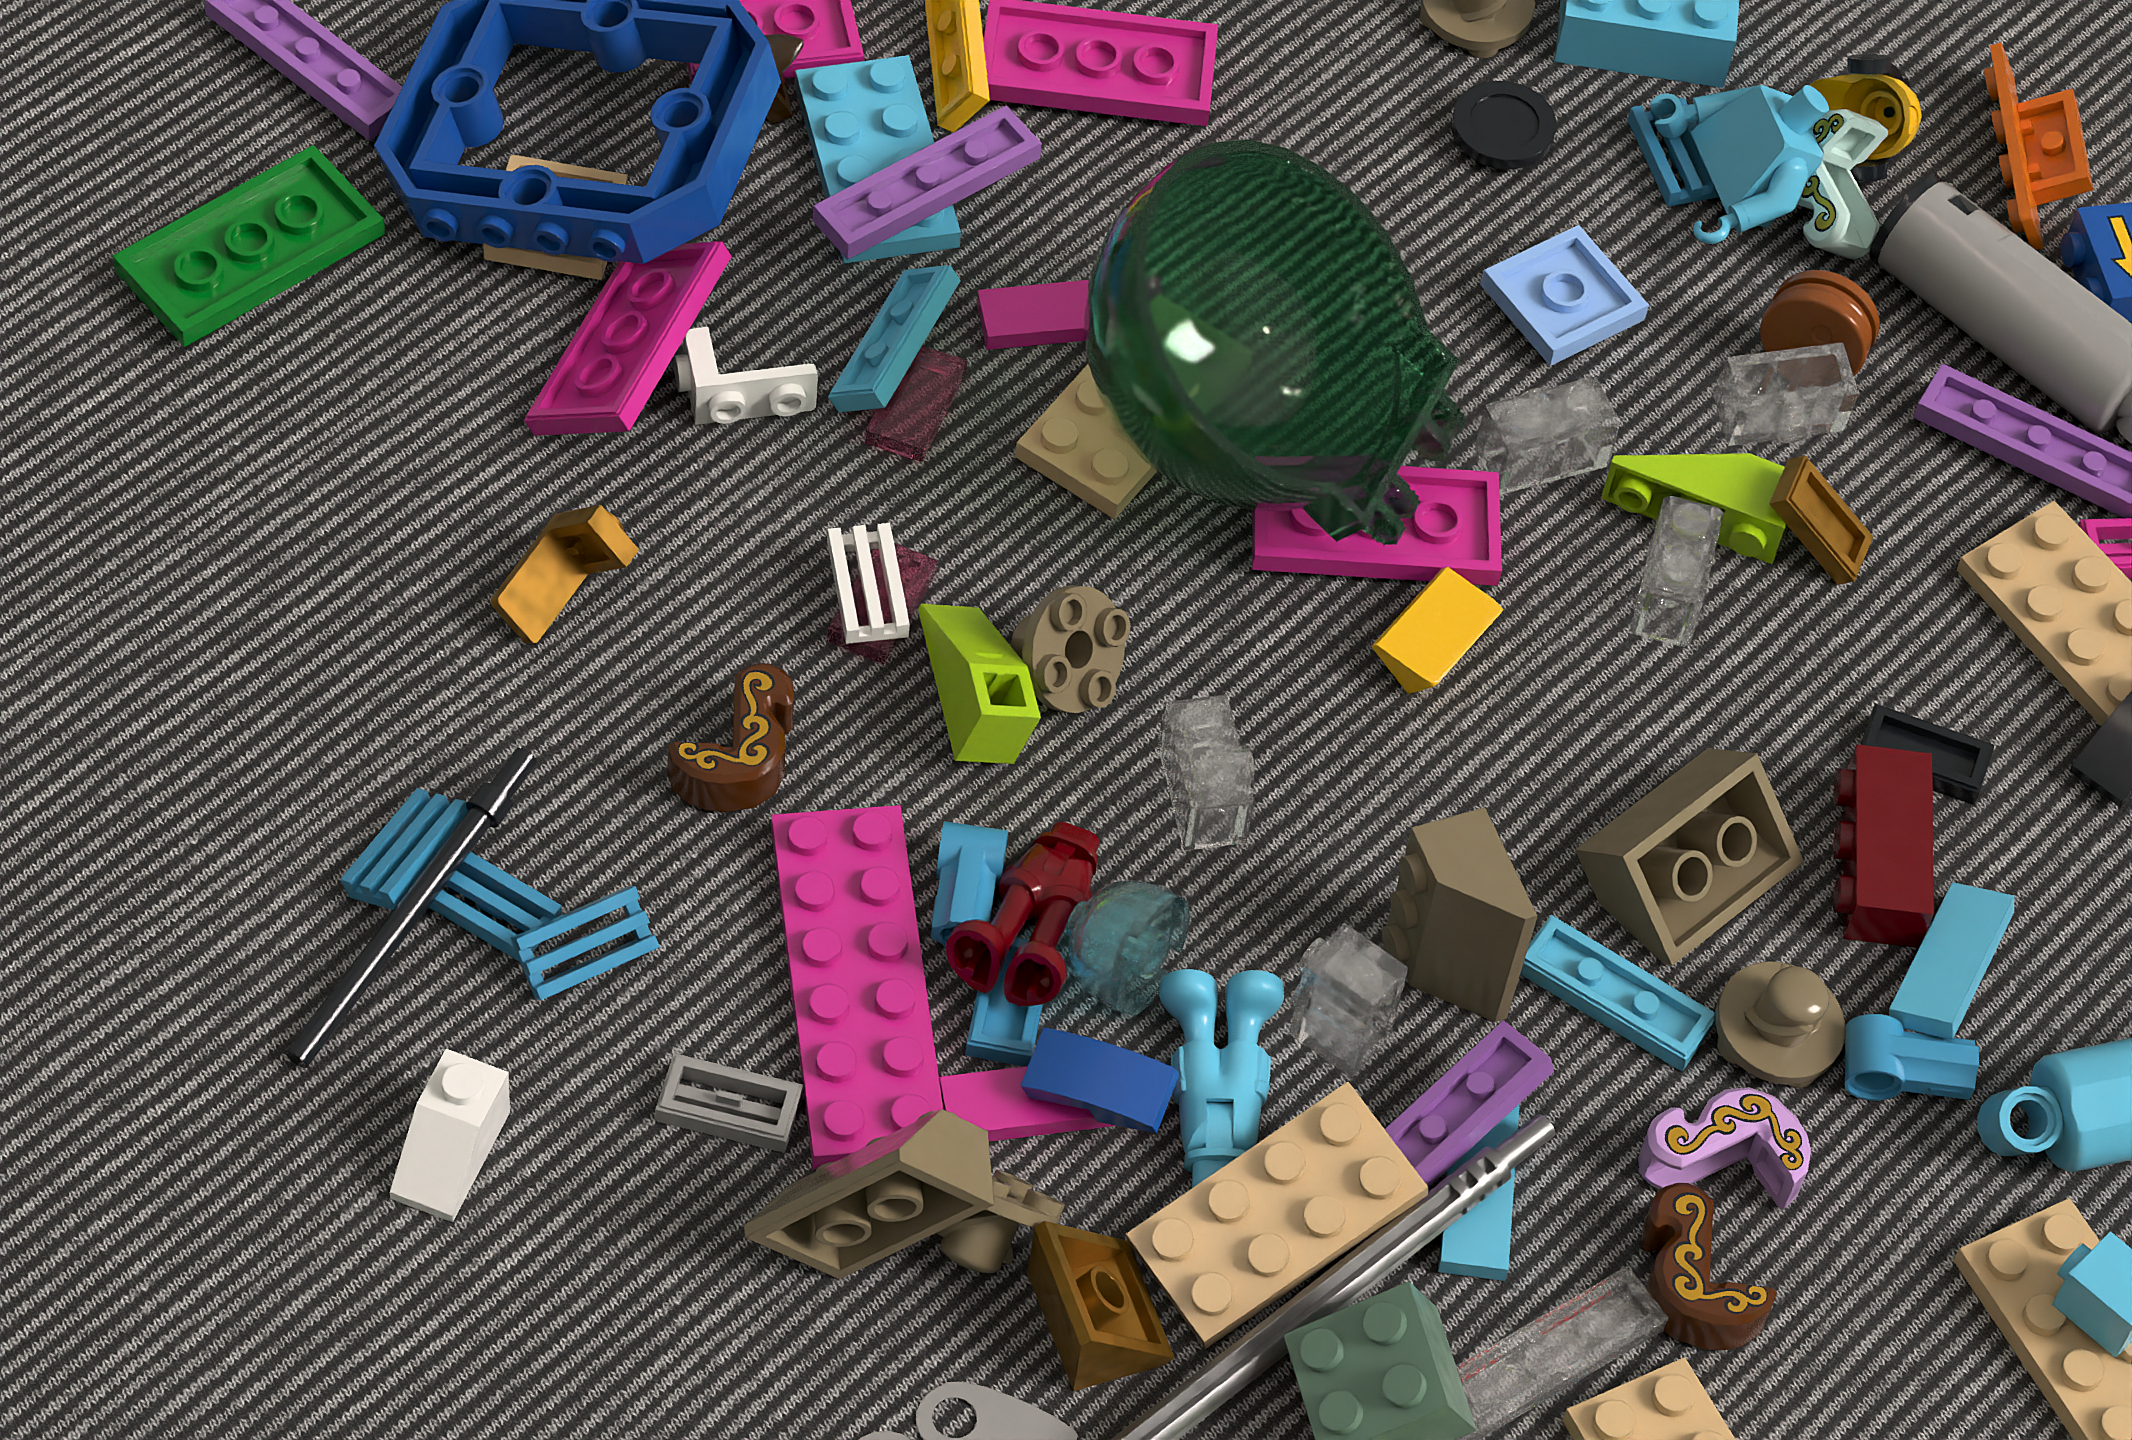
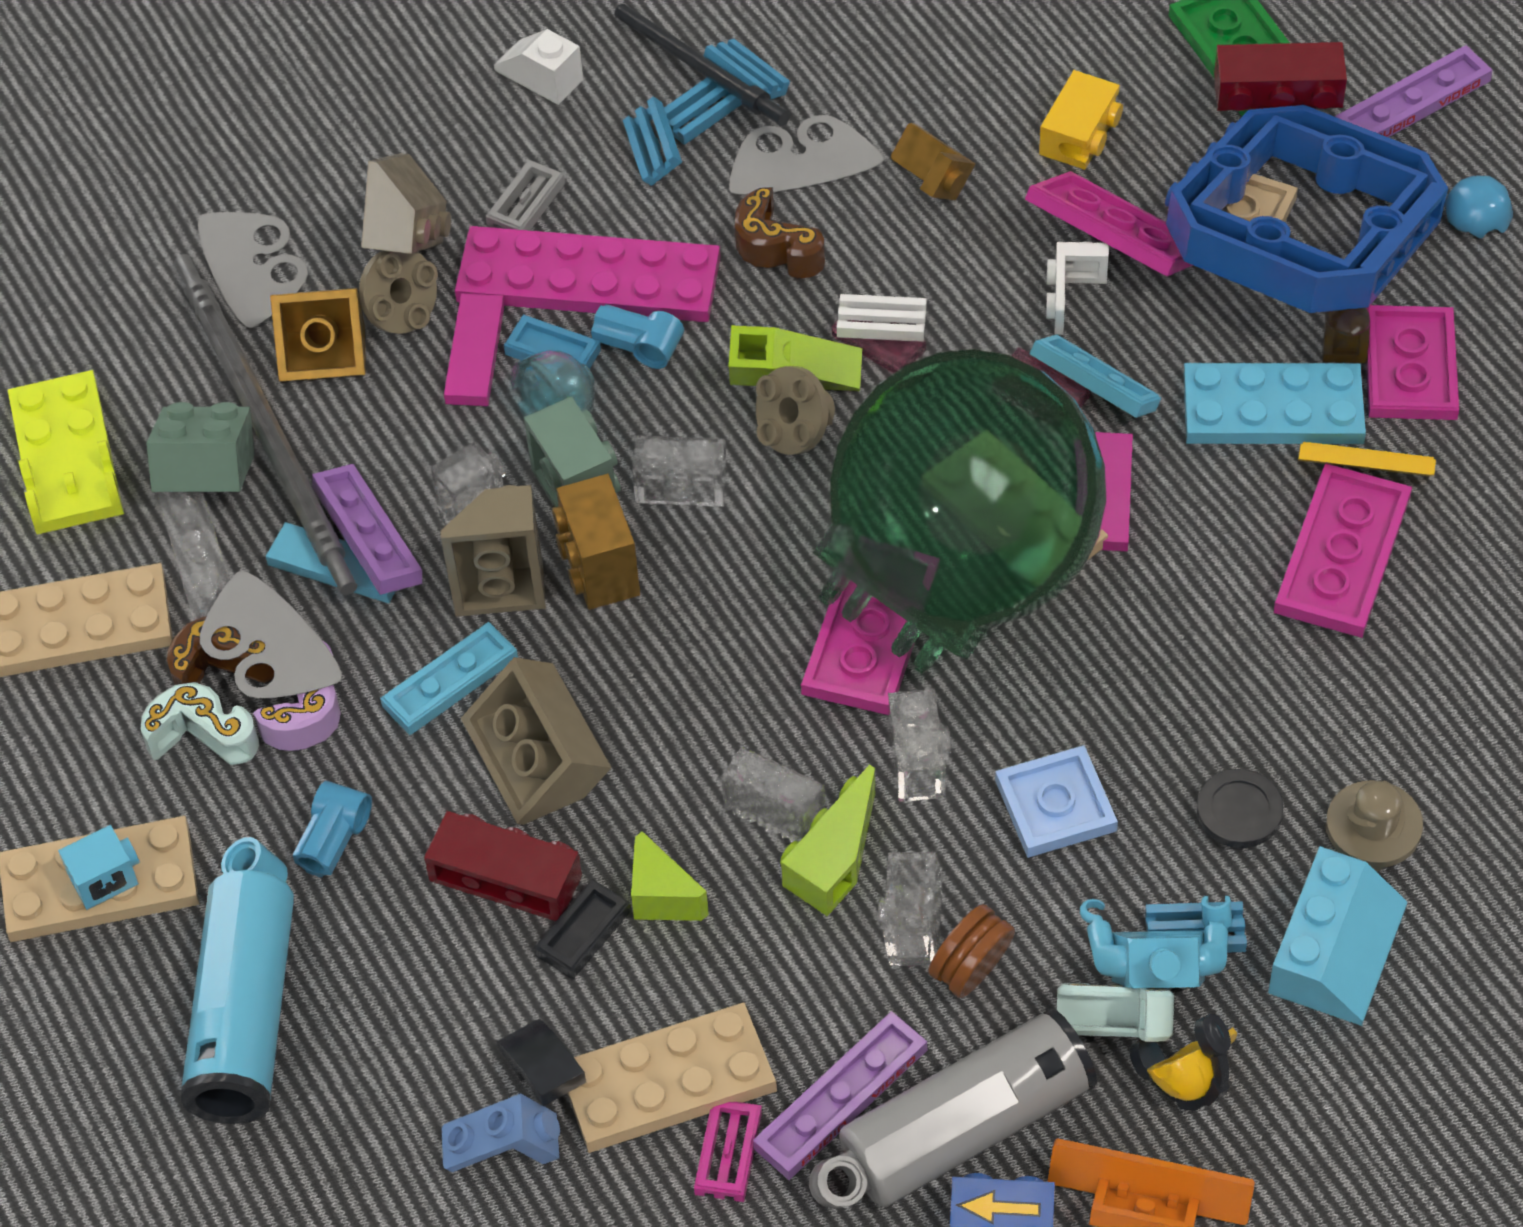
camera: 115 degrees right, 0 degrees up
(335, 171) = (1280, 75): none -> dark red brick
(430, 412) = (1080, 120): none -> yellow brick
(584, 775) = (822, 162): none -> light grey piece
(926, 182) = (1219, 401): medium lavender plate -> none
(1040, 887) = (621, 370): dark red piece -> none
(1100, 1077) = (457, 357): blue slope -> none
(1216, 1087) = (444, 431): medium azure piece -> none
(1256, 884) = (567, 447): none -> sand green brick
(1277, 1214) = (339, 433): tan plate -> none
(1362, 822) = (596, 542): none -> pearl gold brick
(1435, 630) = (764, 635): yellow slope -> none
(1644, 1205) = (291, 646): none -> light grey piece
(1779, 1023) = (389, 760): dark tan plate -> none
(1806, 1302) = (200, 712): none -> light aqua animal
(1821, 520) = (788, 898): pearl gold tile -> none
(1847, 672) = (662, 887): none -> lime slope
(1952, 960) = (396, 875): medium azure tile -> none

